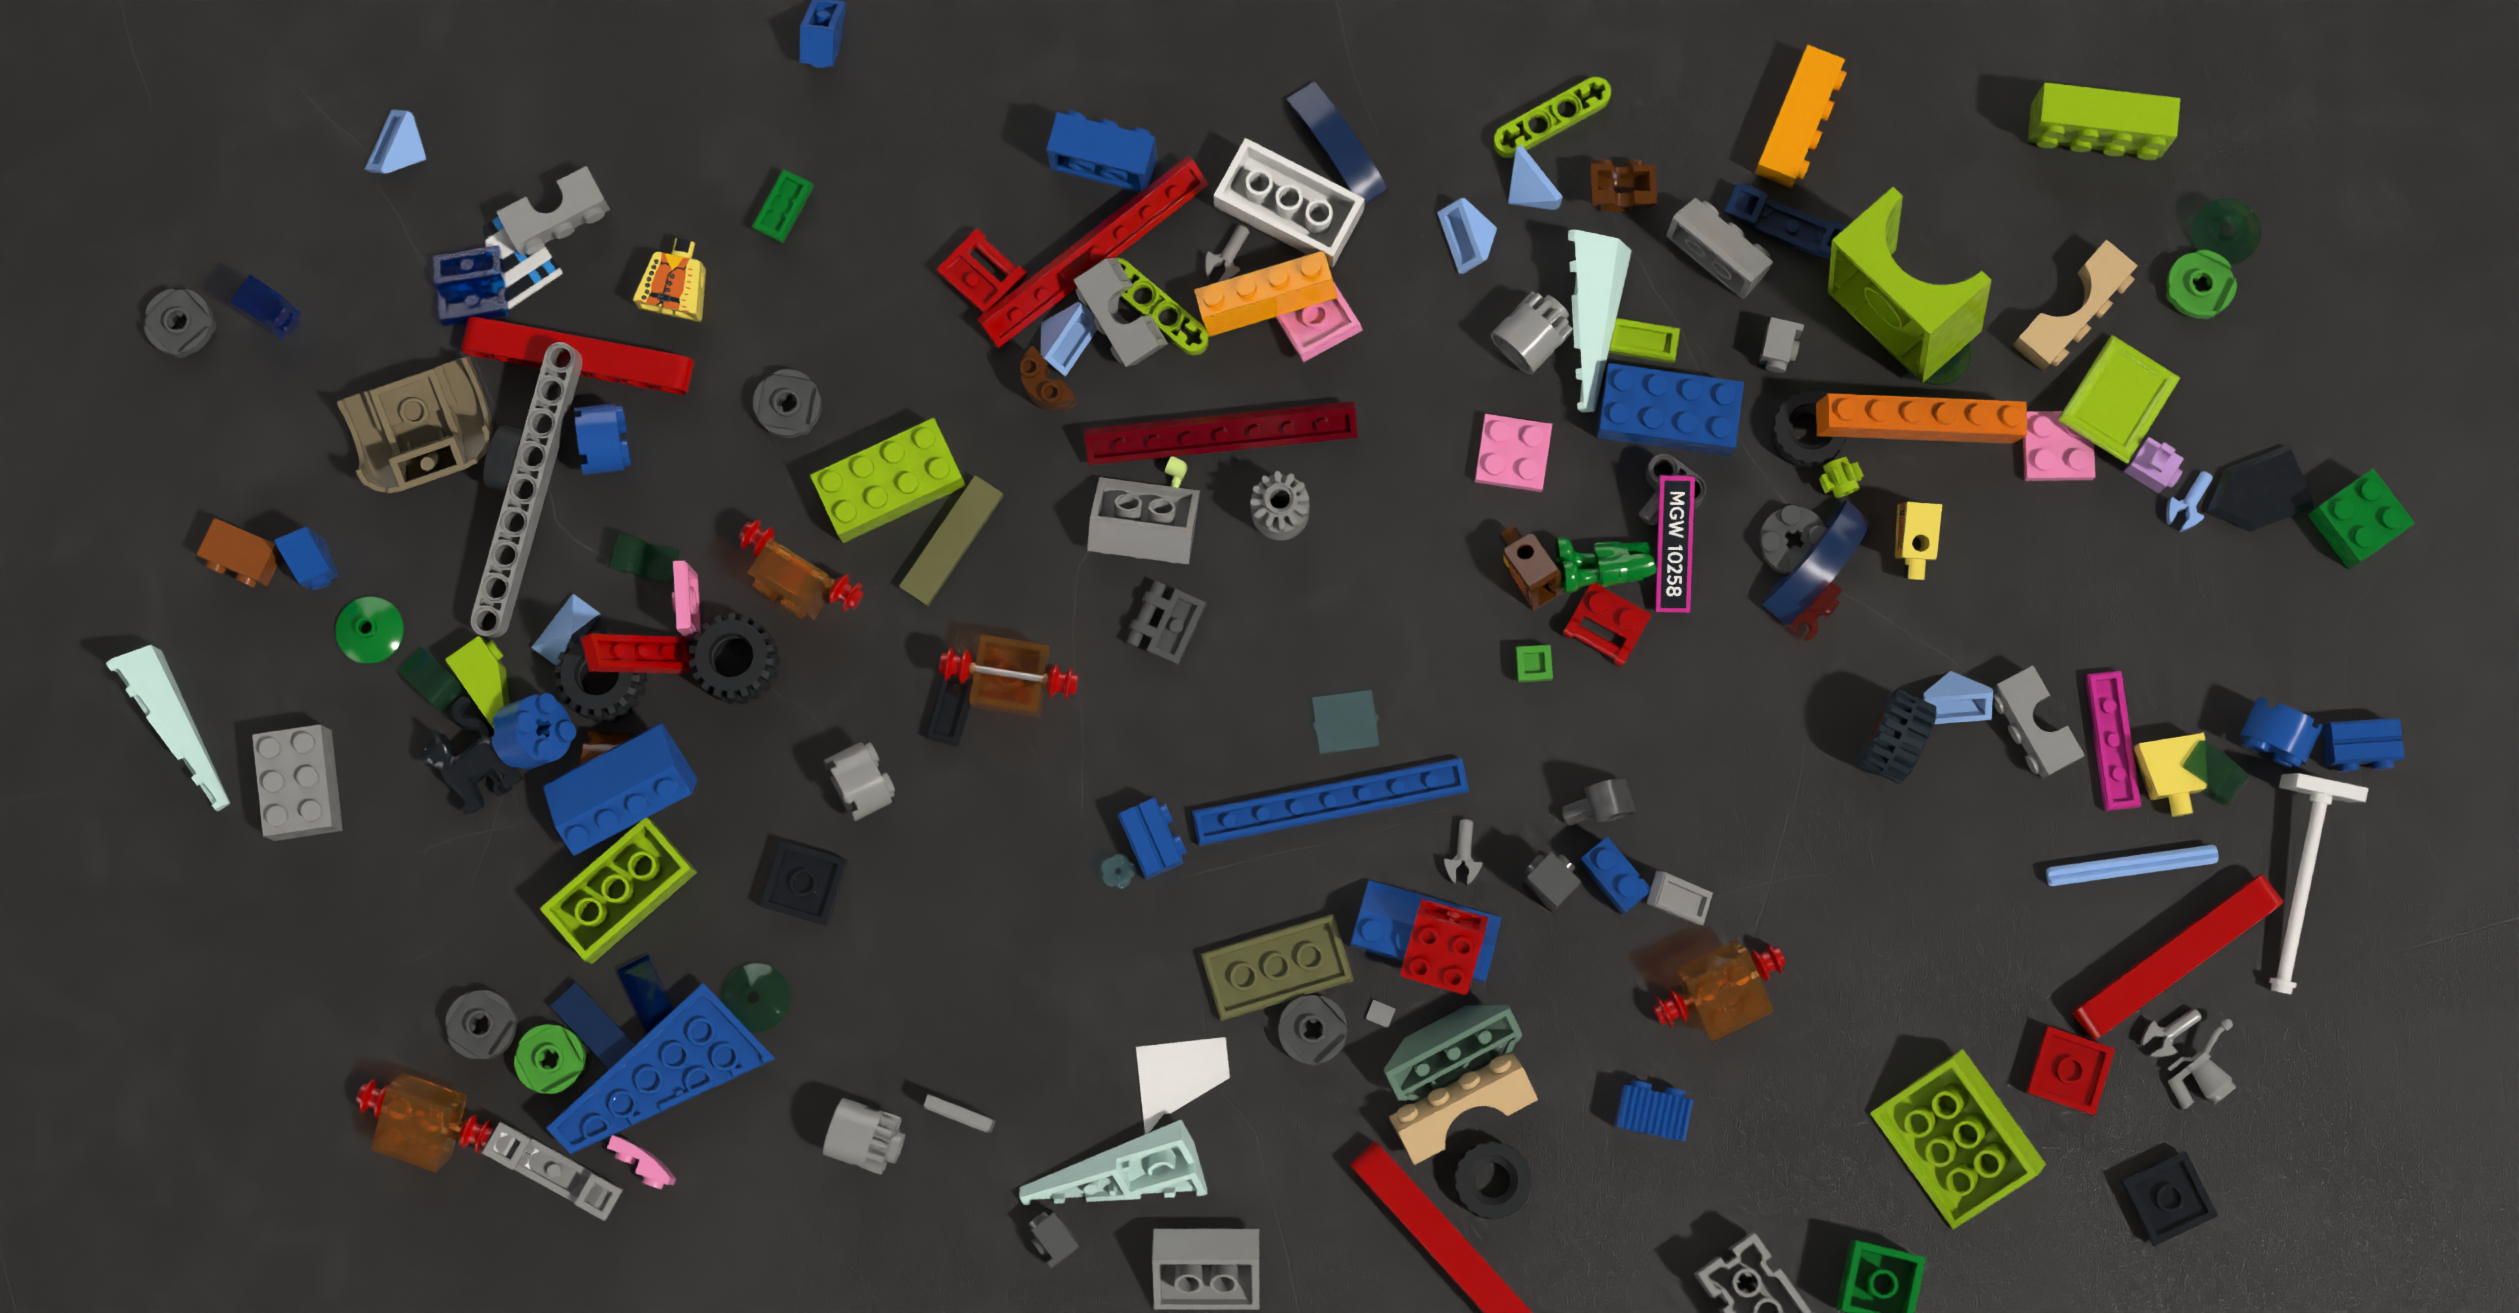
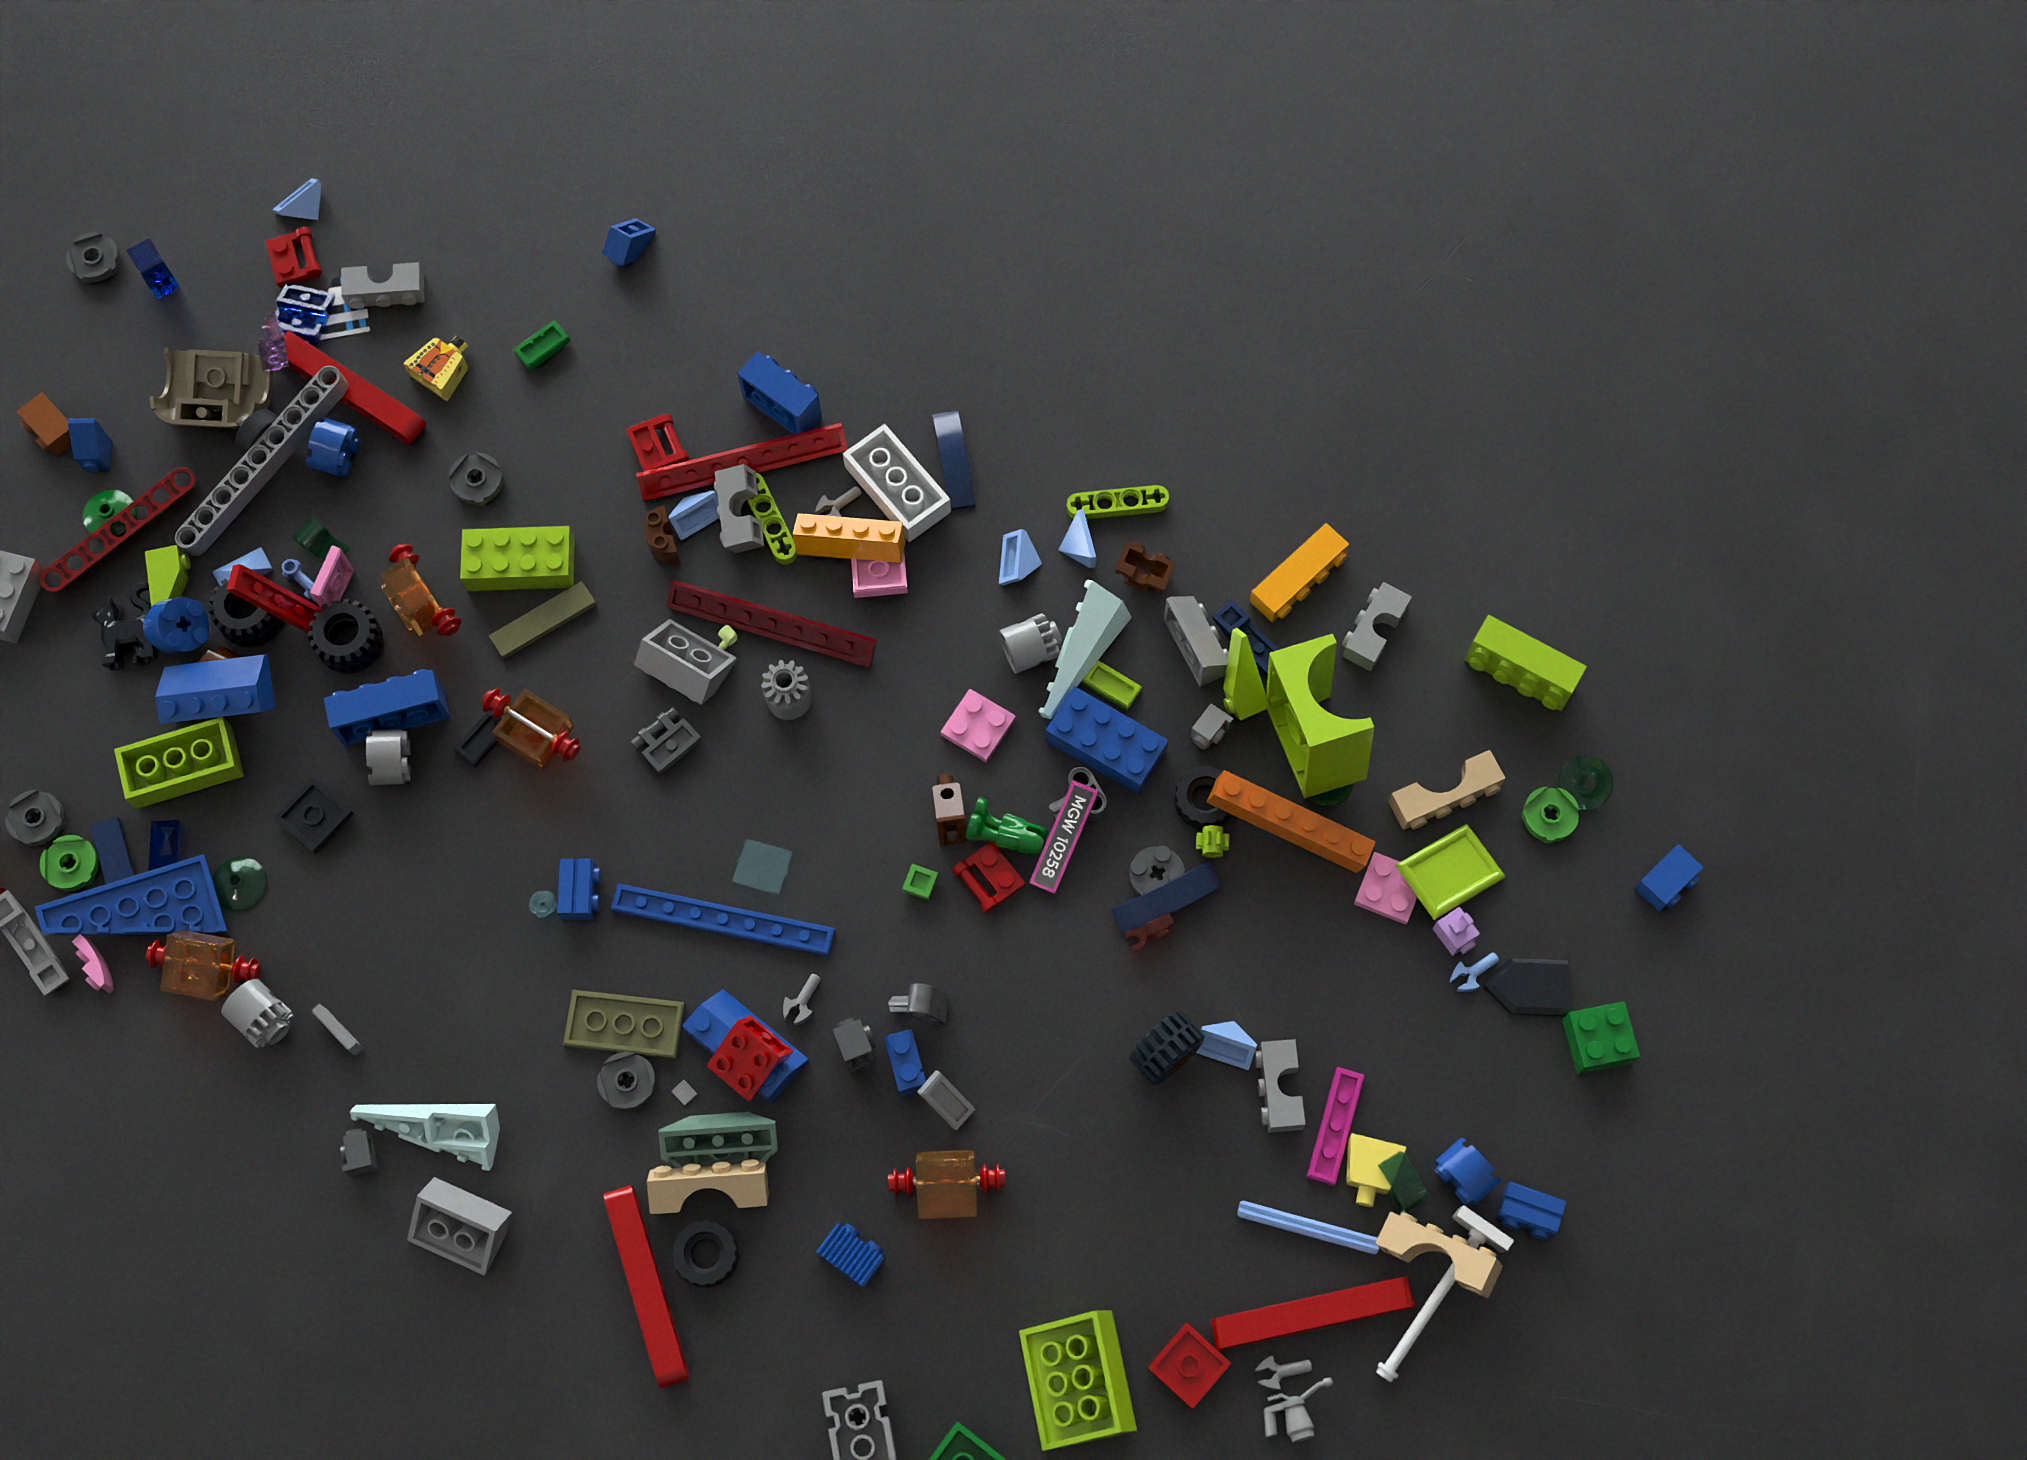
camera: 20 degrees right, 10 degrees down
(381, 655) = (112, 542): none -> red beam
(415, 227) = (285, 259): none -> red plate
(431, 679) = (130, 564): clear green panel -> none
(473, 343) = (272, 347): none -> clear purple bracket
(630, 608) = (293, 572): none -> medium blue bar
(766, 1110) = (199, 964): none -> clear orange brick
(828, 722) = (387, 706): none -> blue brick
(1178, 1074) = (513, 1072): white sticker -> none
(1795, 274) = (1242, 680): none -> lime slope
(1914, 115) = (1385, 606): none -> light grey arch
(1918, 521) = (1253, 896): light yellow torso -> none
(2245, 833) = (1406, 1239): none -> tan arch
(2362, 304) = (1669, 877): none -> blue brick

